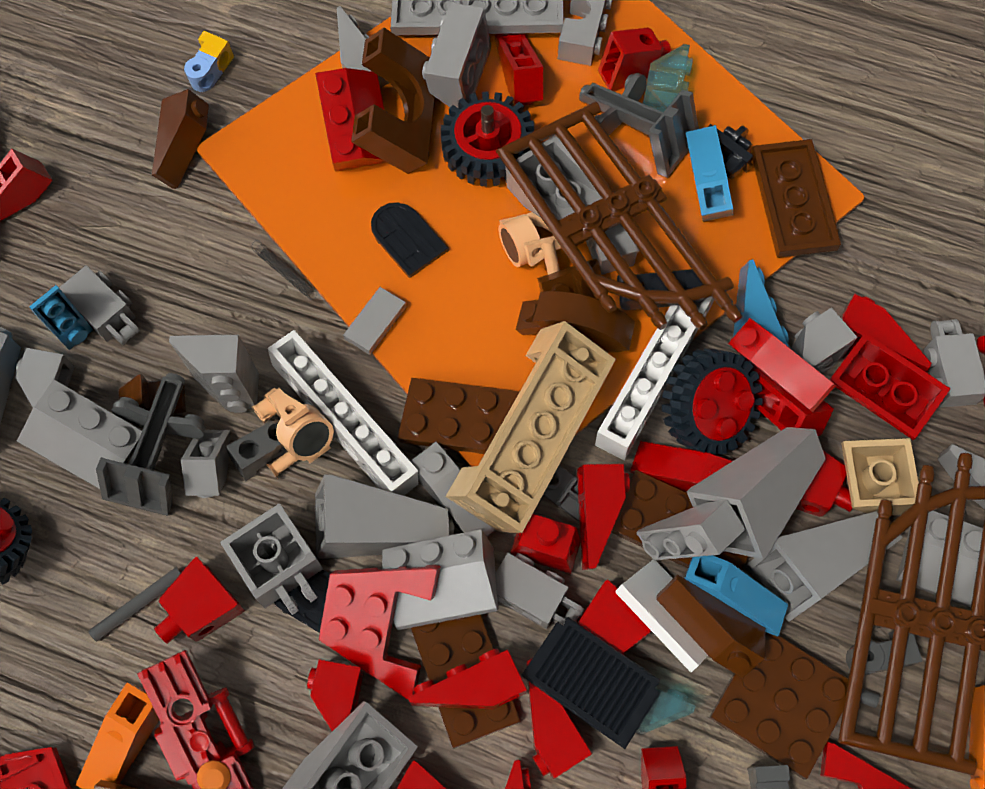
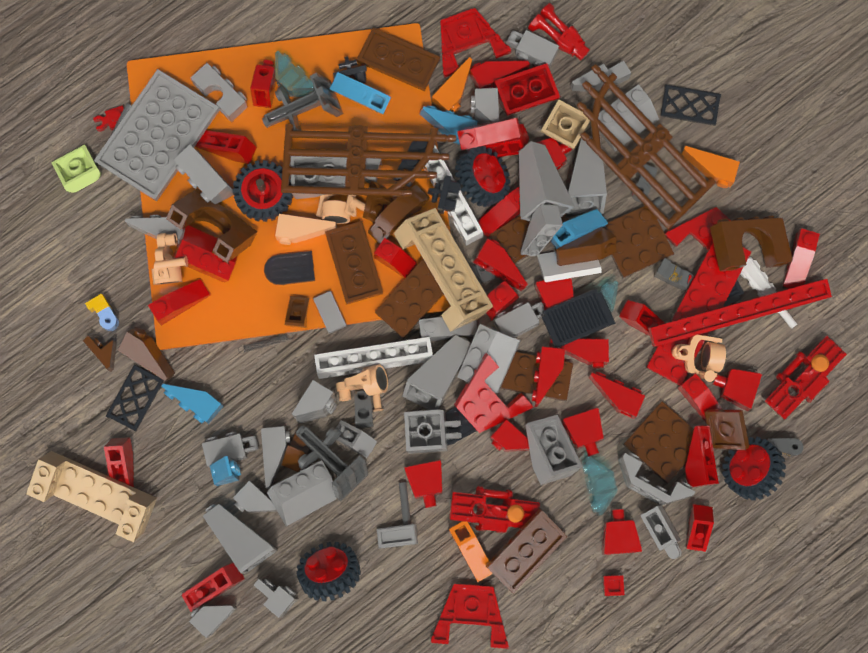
camera: 60 degrees left, 10 degrees up
(89, 613) = (397, 536): none -> light grey tile
(101, 146) = (141, 412): none -> black window
(136, 356) = (274, 448): none -> light grey slope
(146, 236) = (198, 401): none -> dark azure slope
(151, 87) = (106, 354): none -> reddish brown slope
(267, 127) = (178, 301): none -> red slope
(298, 84) = (167, 270): none -> light nougat piece
(343, 275) = (297, 312): none -> reddish brown slope
(465, 309) = (354, 262): none -> reddish brown plate
(466, 213) = (297, 229): none -> light nougat slope
(508, 354) = (394, 258): none -> red slope
(642, 352) = (445, 203): none -> black hips
(803, 293) = (451, 92): none -> orange slope
(902, 262) = (465, 32): none -> red wing

